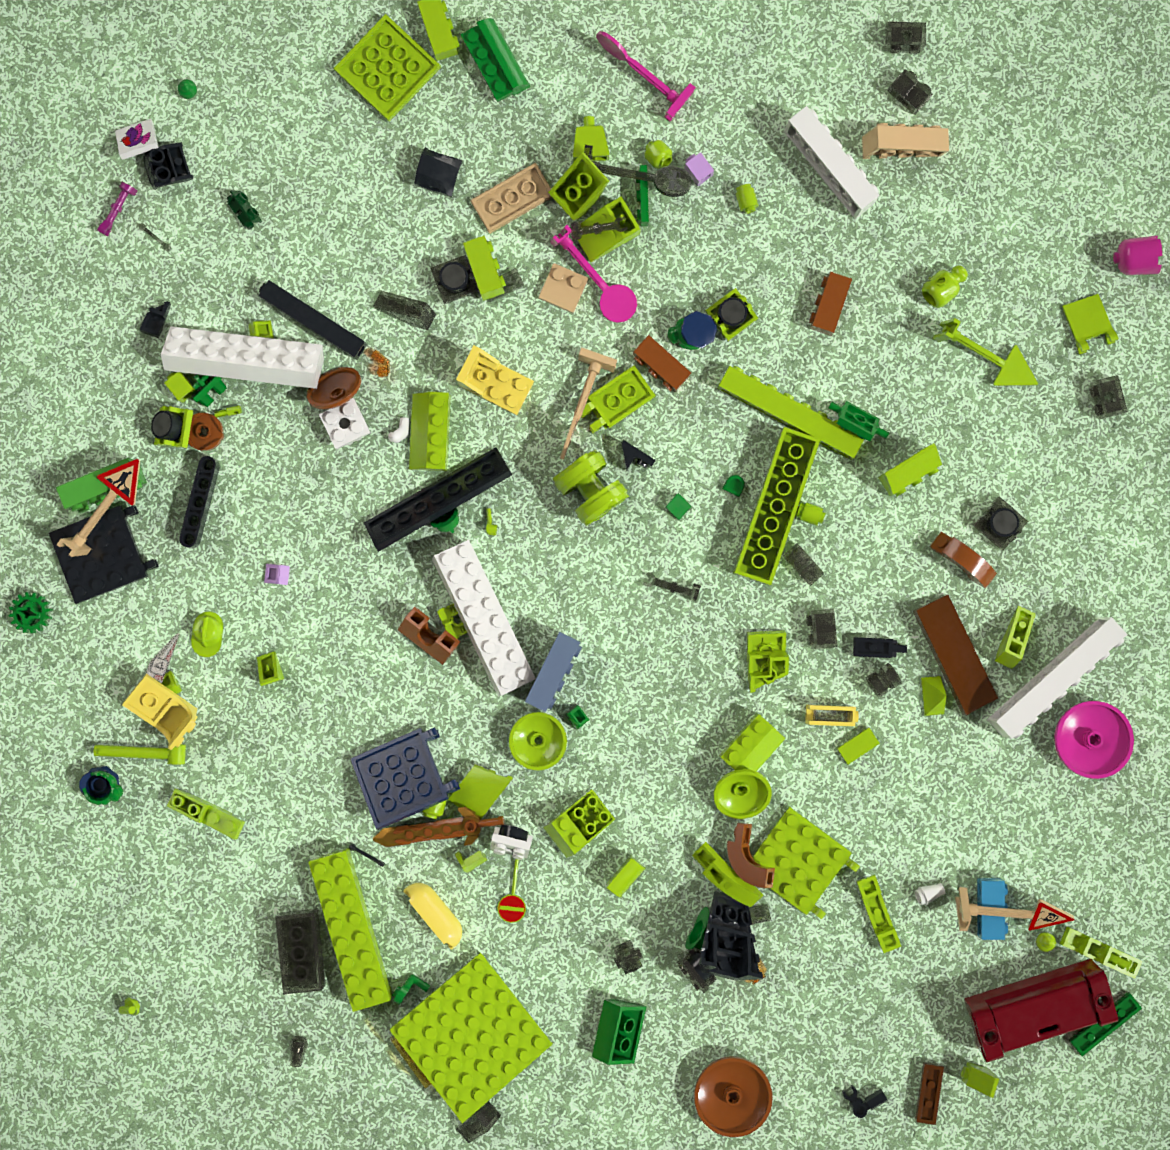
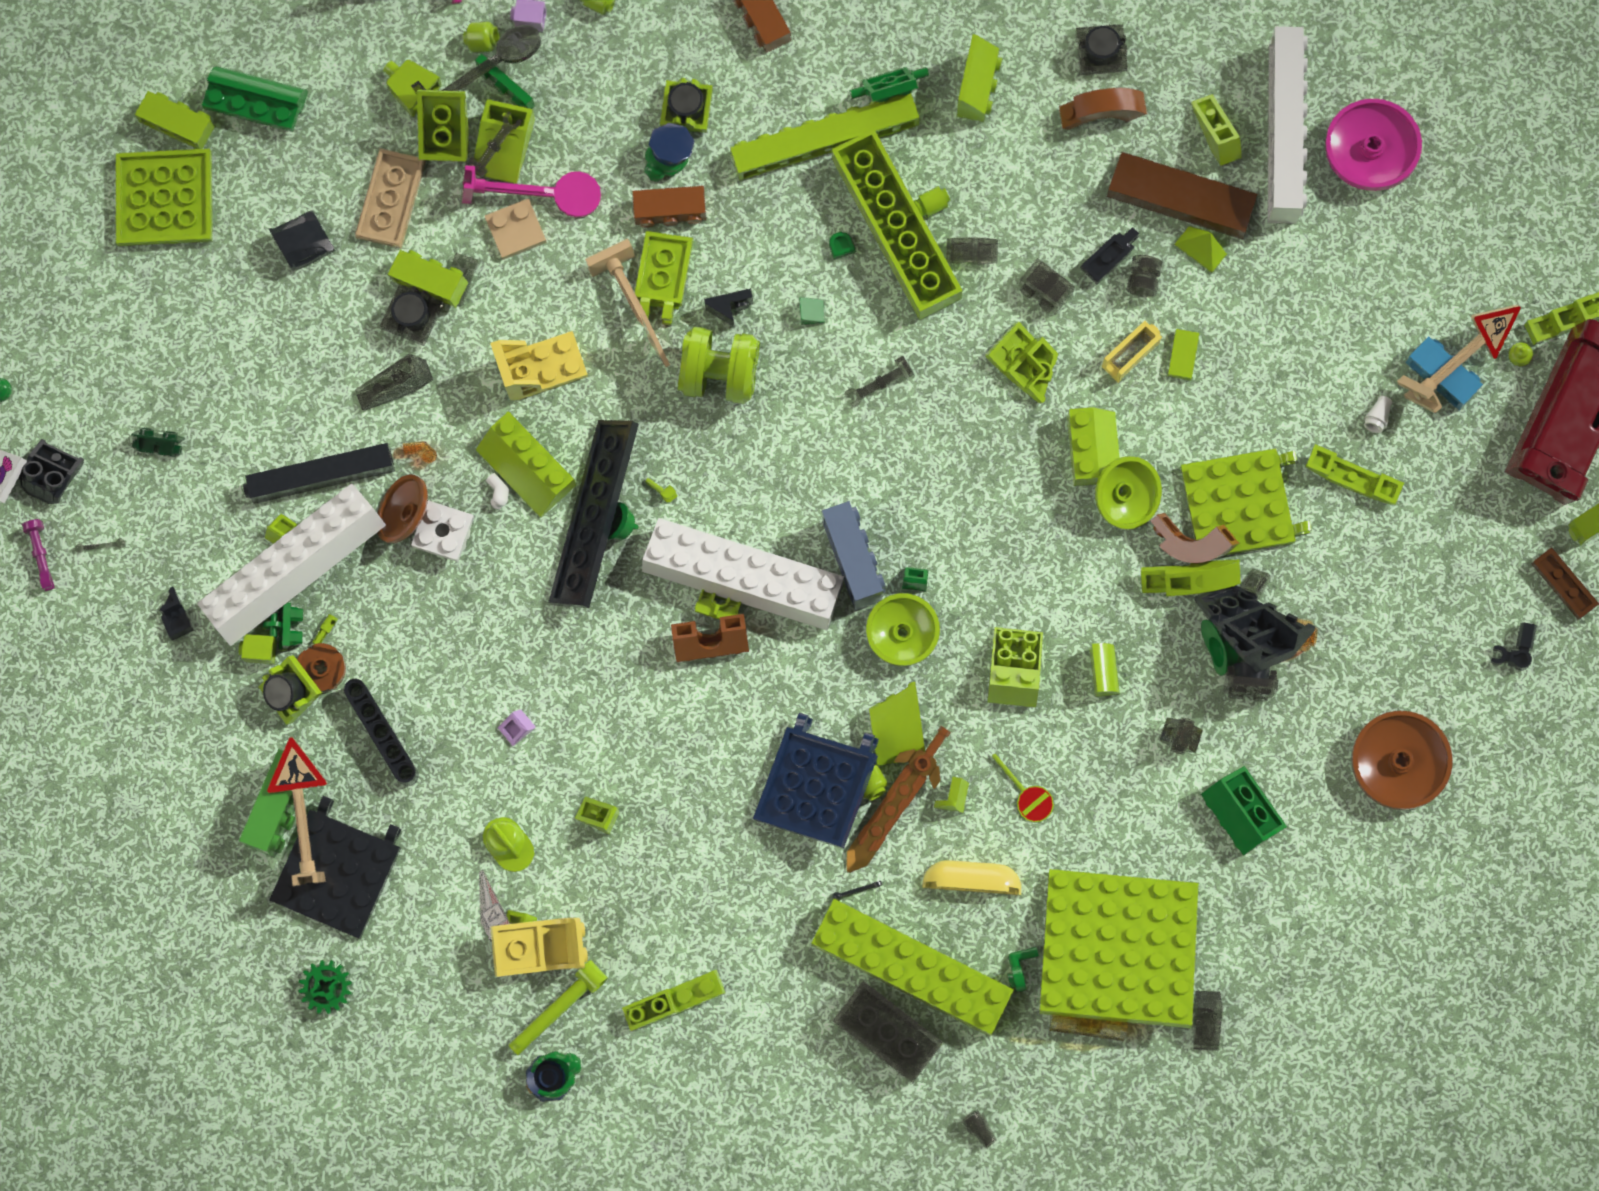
camera: 45 degrees left, 10 degrees down
(511, 841) = (973, 741): white piece -> none

